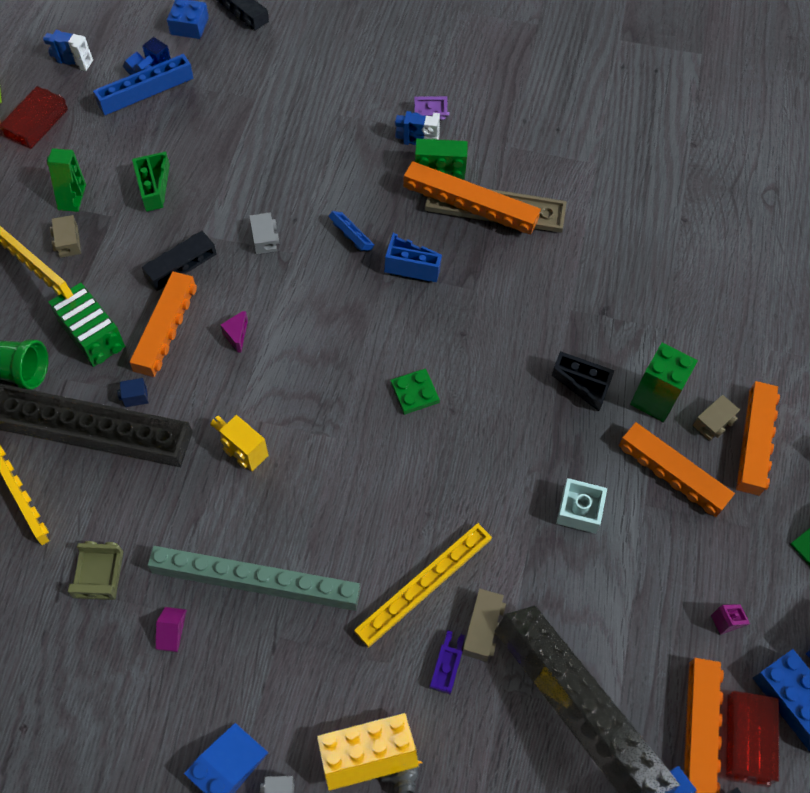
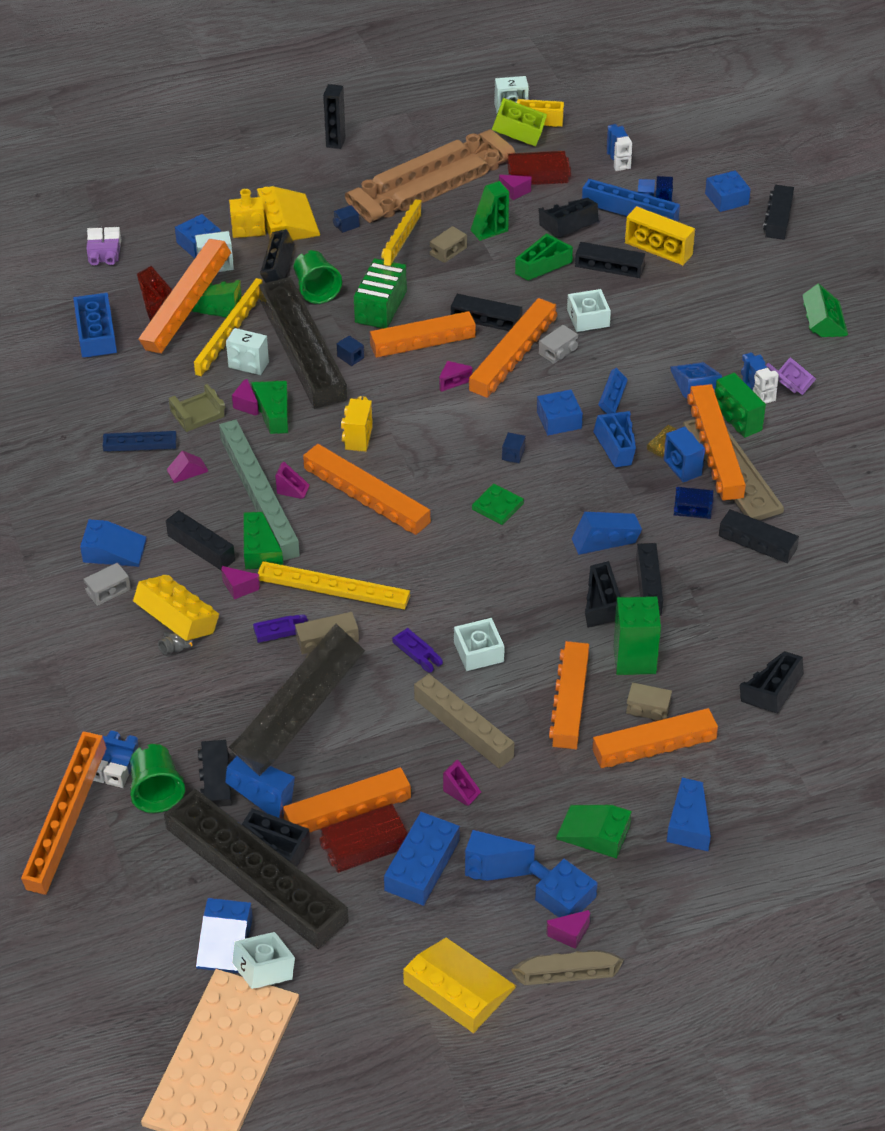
camera: 60 degrees right, 15 degrees down
(38, 146) = (516, 185): none -> magenta slope
(64, 481) = (247, 351): none -> light aqua brick
(97, 654) = (139, 441): none -> dark blue plate
(119, 134) = (570, 217): none -> black wedge
(123, 519) = (244, 399): none -> magenta slope
(153, 499) = (273, 404): none -> green wedge
(194, 138) = (610, 259): none -> black brick
(203, 89) = (659, 235): none -> yellow brick
(239, 268) = (512, 348): none -> orange brick
(245, 188) = (588, 310): none -> light aqua brick
(268, 544) = (290, 483): none -> magenta slope
(284, 673) = (200, 540): none -> black brick
(322, 484) = (367, 489): none -> orange brick
(326, 618) = (259, 542): none -> green wedge
(346, 281) = (559, 412): none -> blue brick
(361, 339) = (513, 447): none -> dark blue brick
(364, 669) = (240, 582): none -> magenta slope
(375, 49) = (824, 313): none -> green slope
(383, 168) = (694, 375): none -> blue slope
(433, 231) = (657, 444): none -> clear yellow plate
(468, 227) = (684, 454): none -> blue brick
(511, 334) = (605, 531): none -> blue wedge
(518, 254) = (693, 502): none -> clear blue brick
(548, 559) = (417, 649): none -> dark purple hinge
(584, 236) = (758, 536): none -> black brick
(584, 335) = (649, 572): none -> black brick
(659, 570) = (464, 721): none -> dark tan brick
(750, 320) = (773, 684): none -> black wedge

